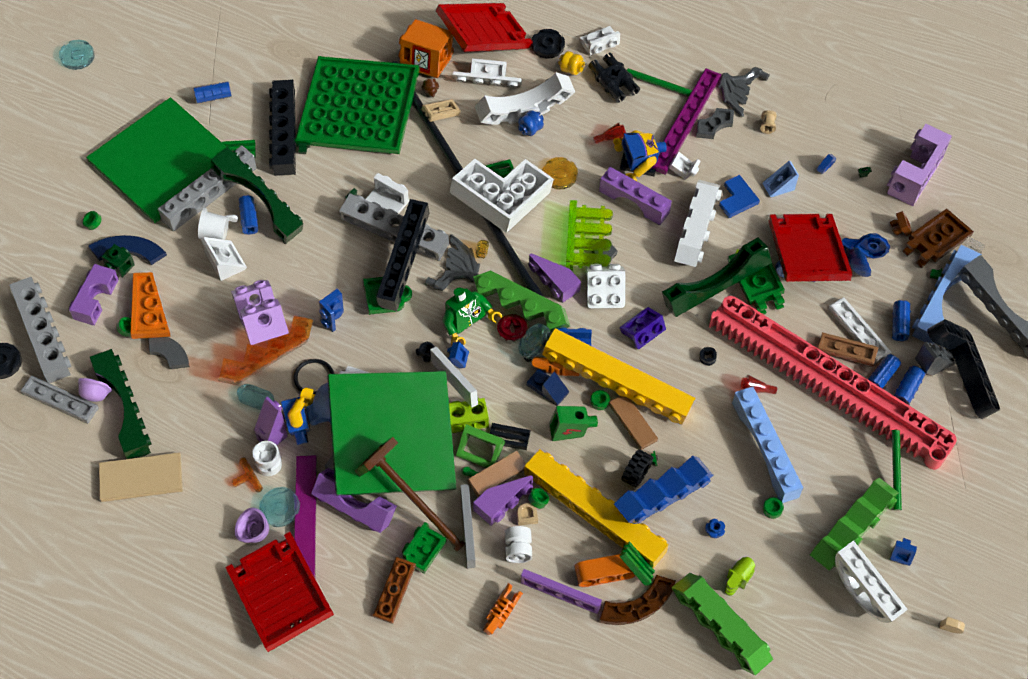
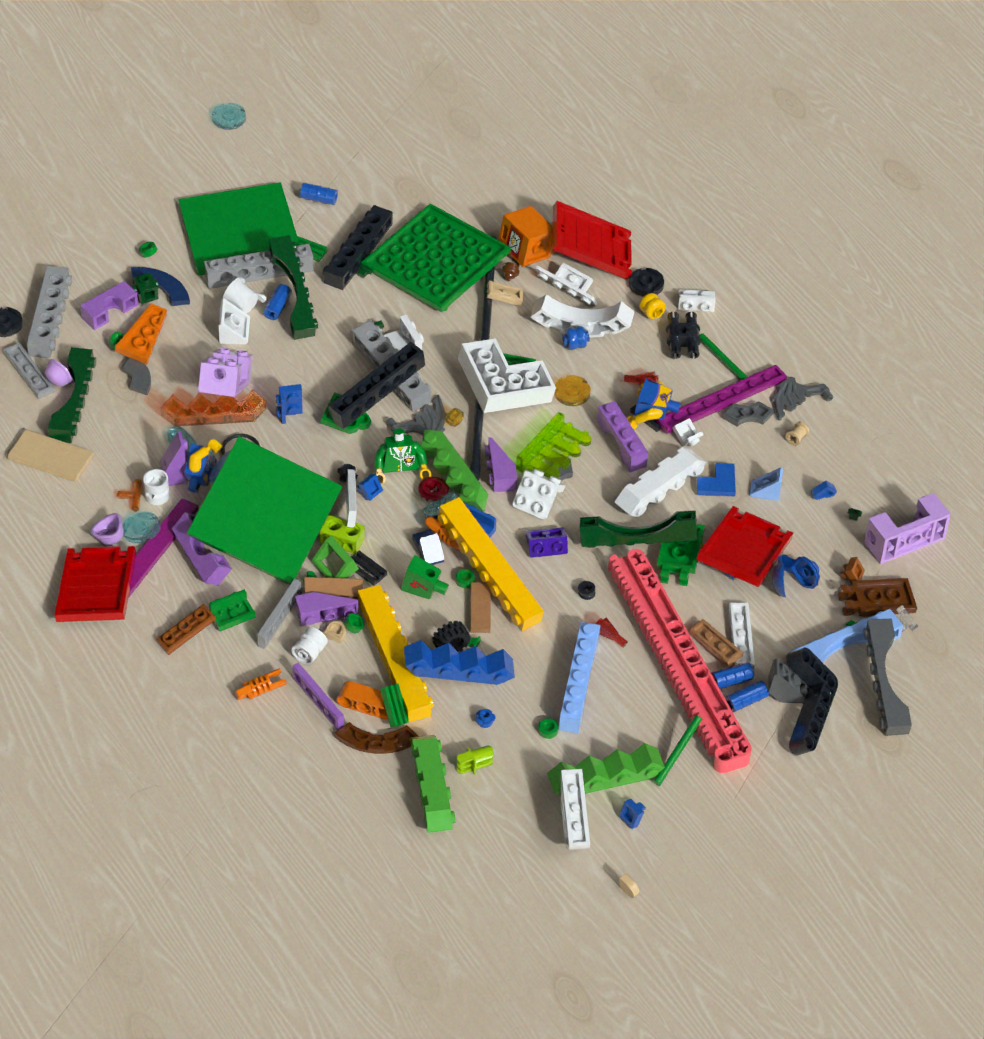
camera: 30 degrees right, 10 degrees down
(377, 459) = (234, 517): reddish brown tile -> none
(901, 320) = (784, 643): blue axle -> none

